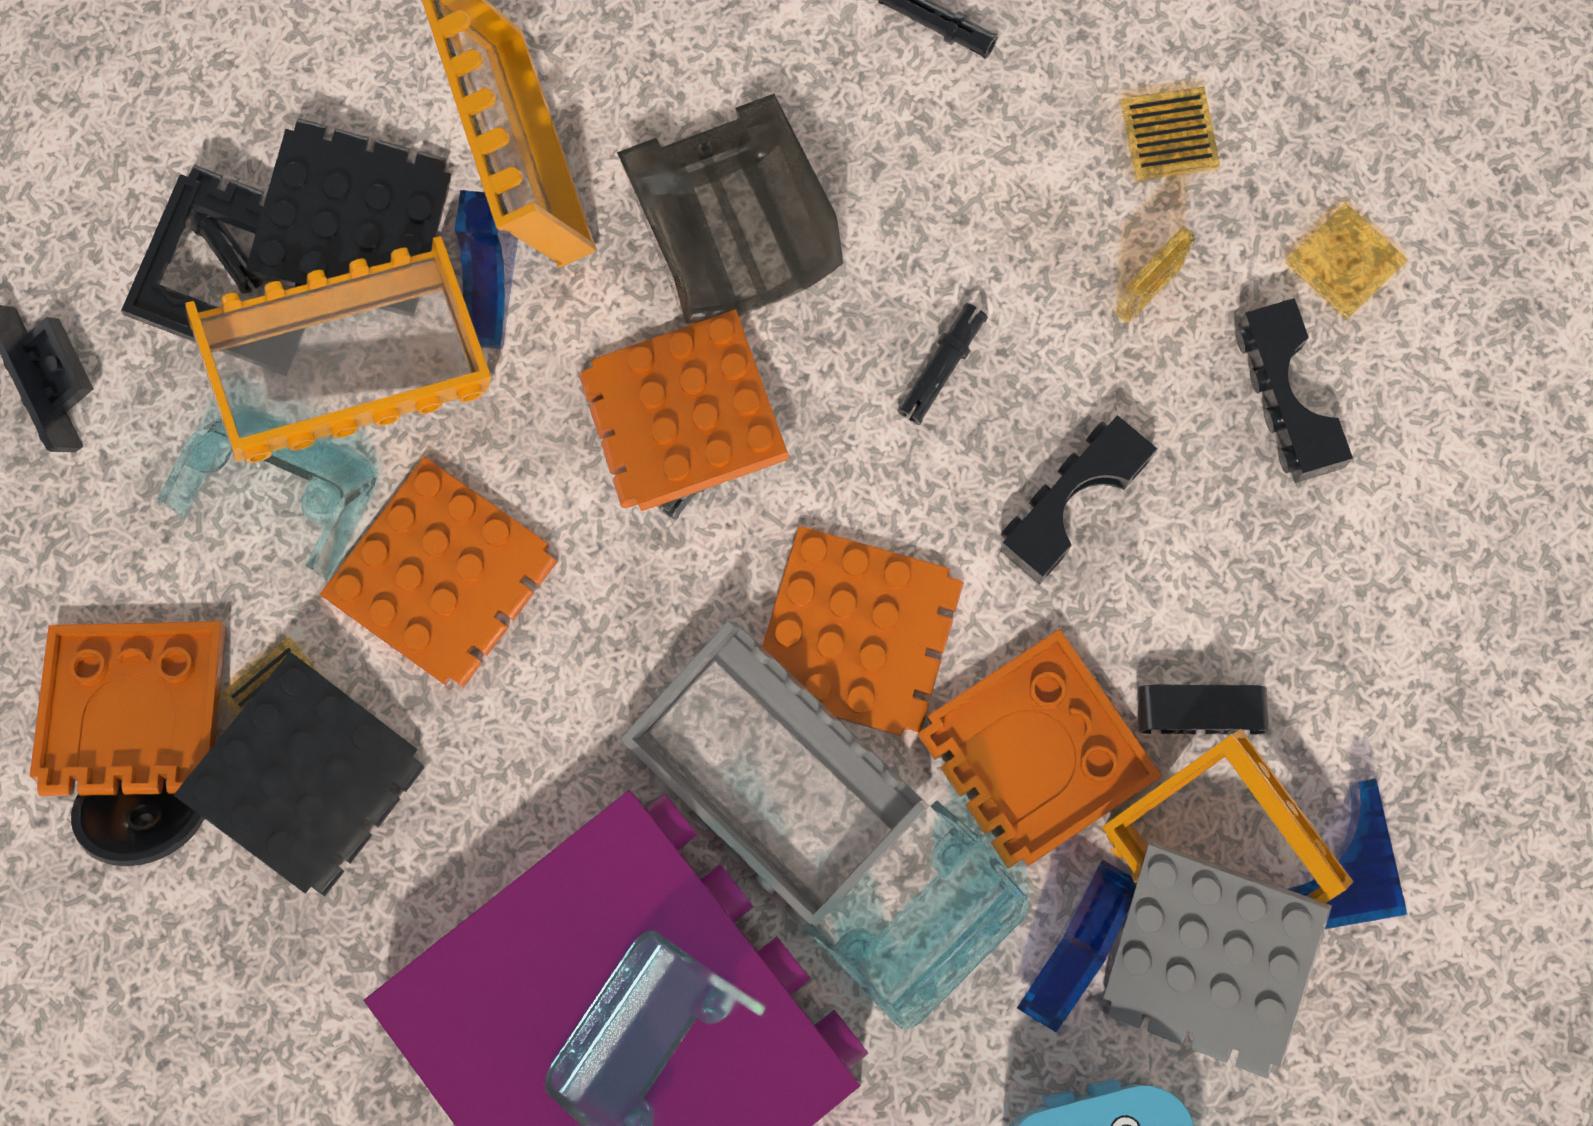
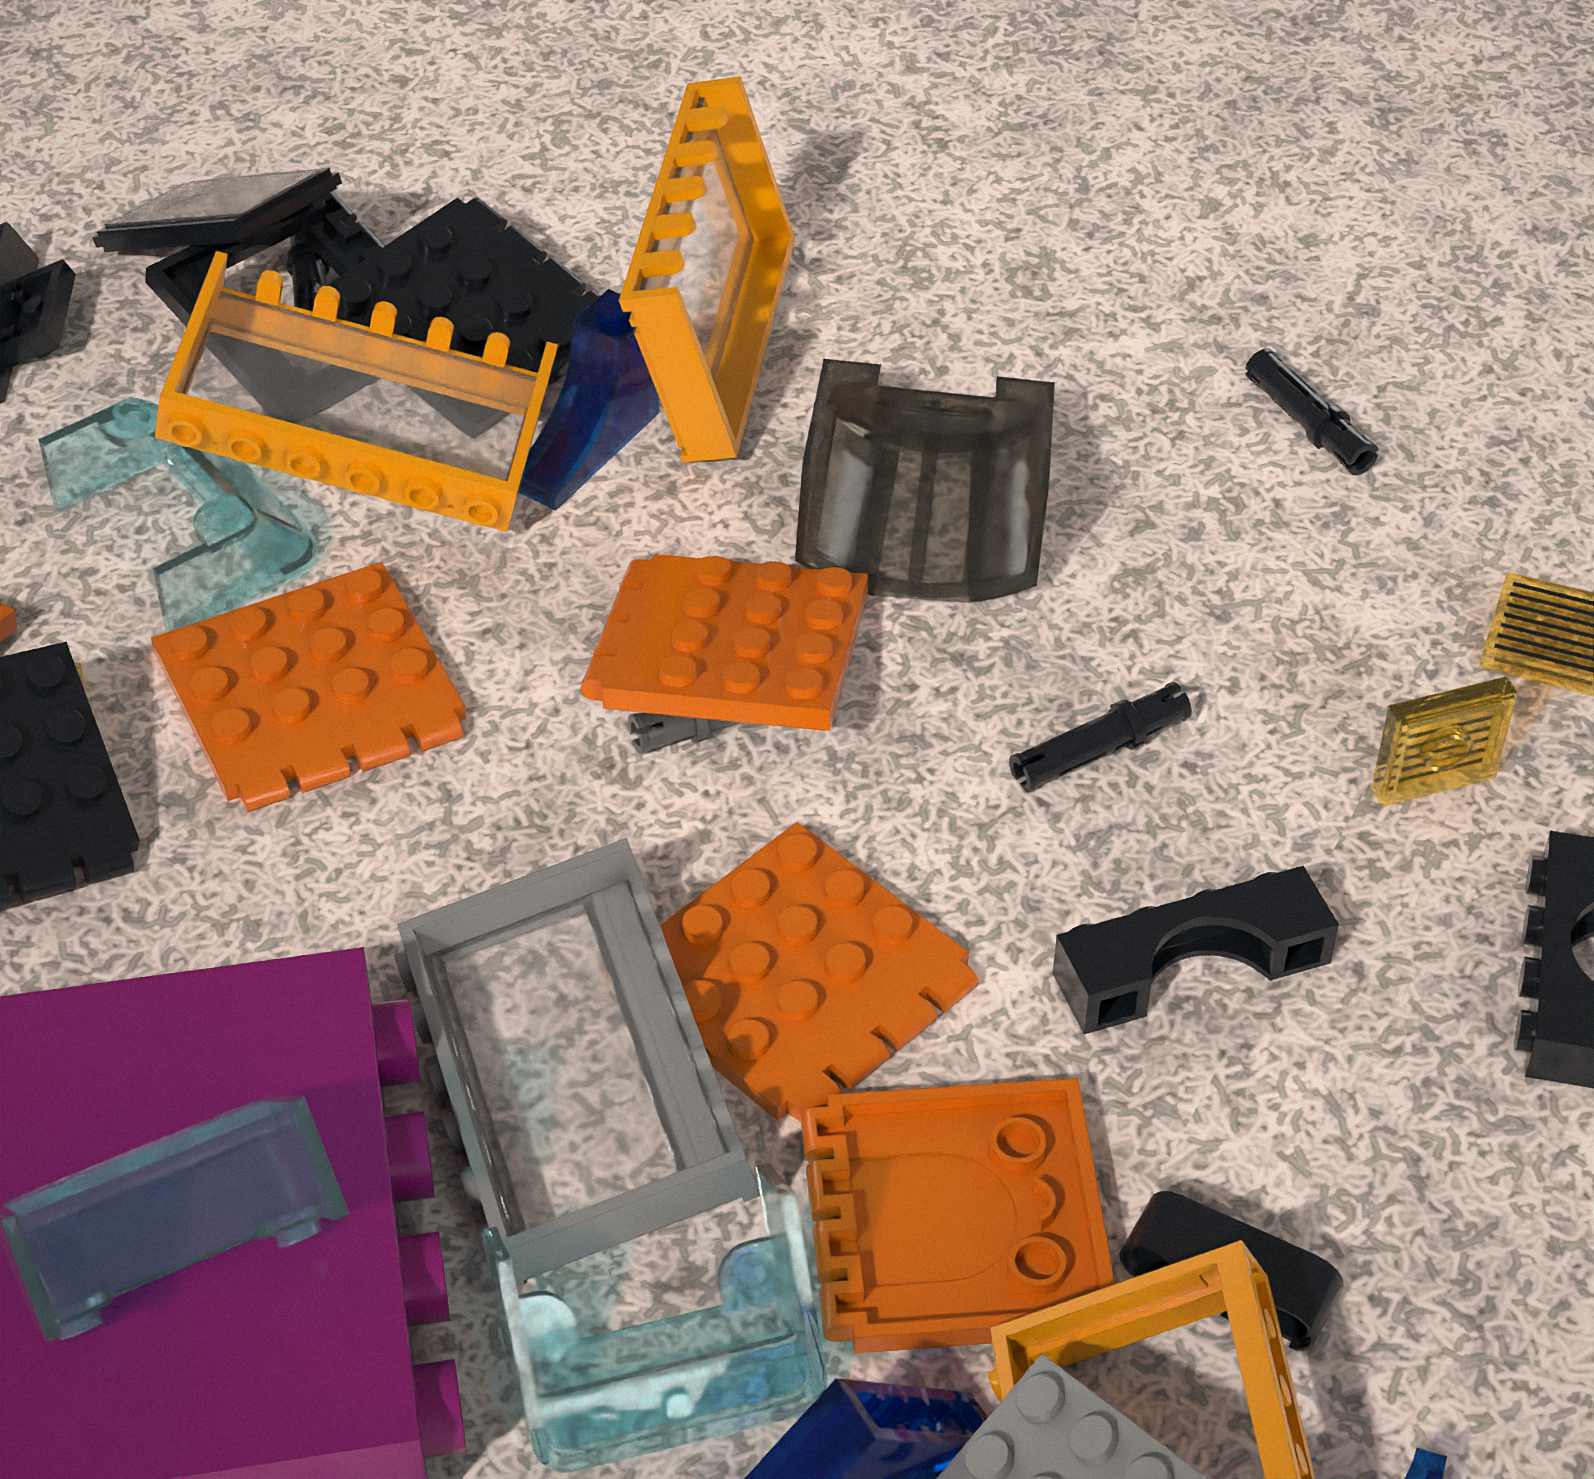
camera: 20 degrees right, 30 degrees down
(129, 226) = (216, 210): none -> piece

